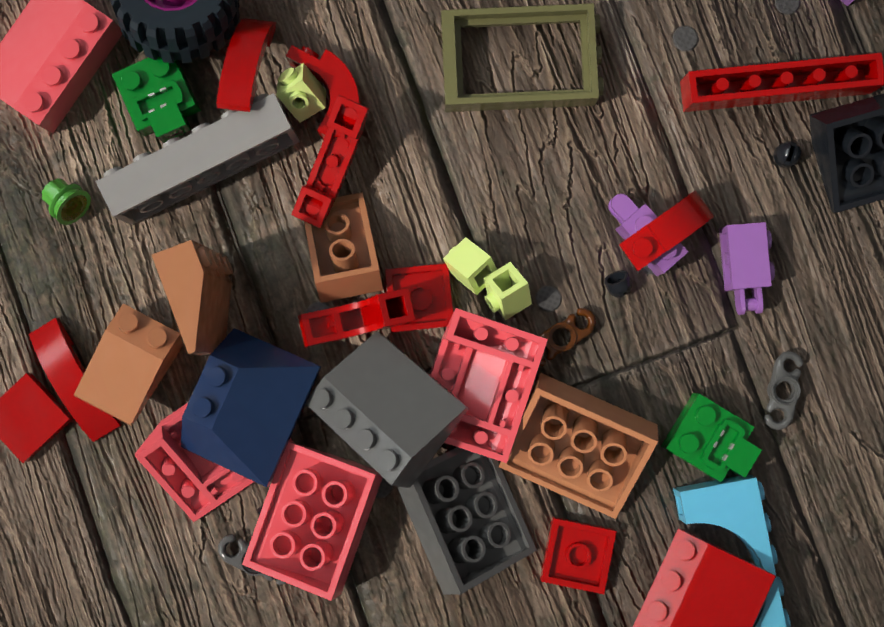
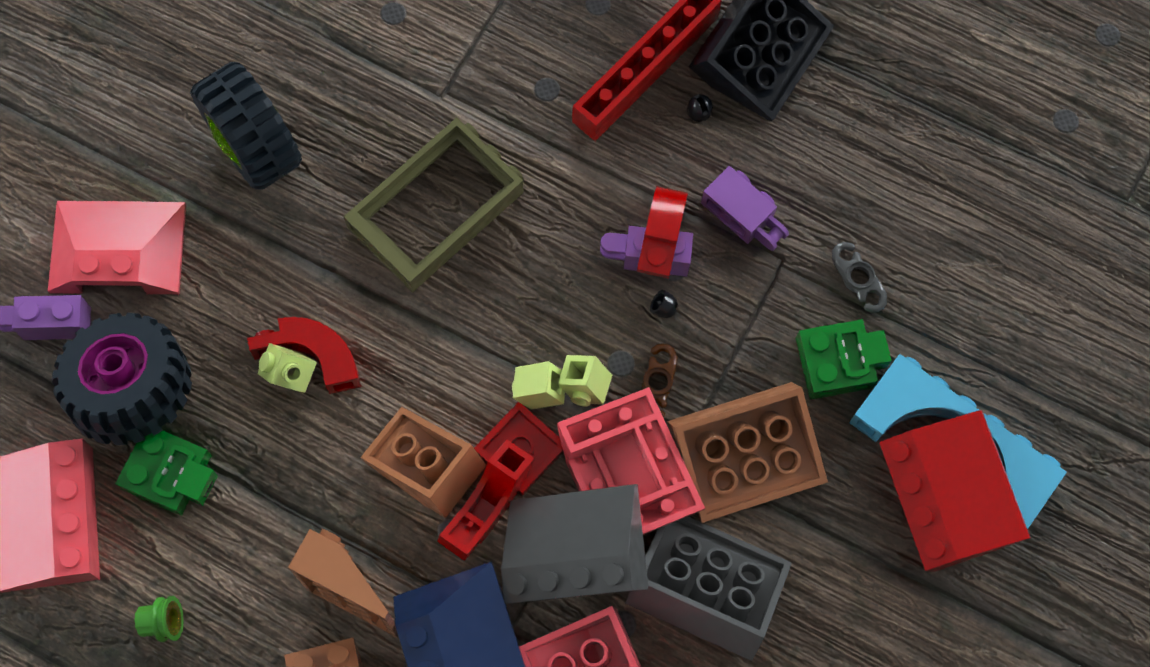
camera: 45 degrees left, 15 degrees down
(197, 160) = (249, 487): light grey brick -> none
(242, 64) = (225, 381): red slope -> none
(332, 161) = (358, 397): red slope -> none
(578, 555) = (826, 537): red tile -> none

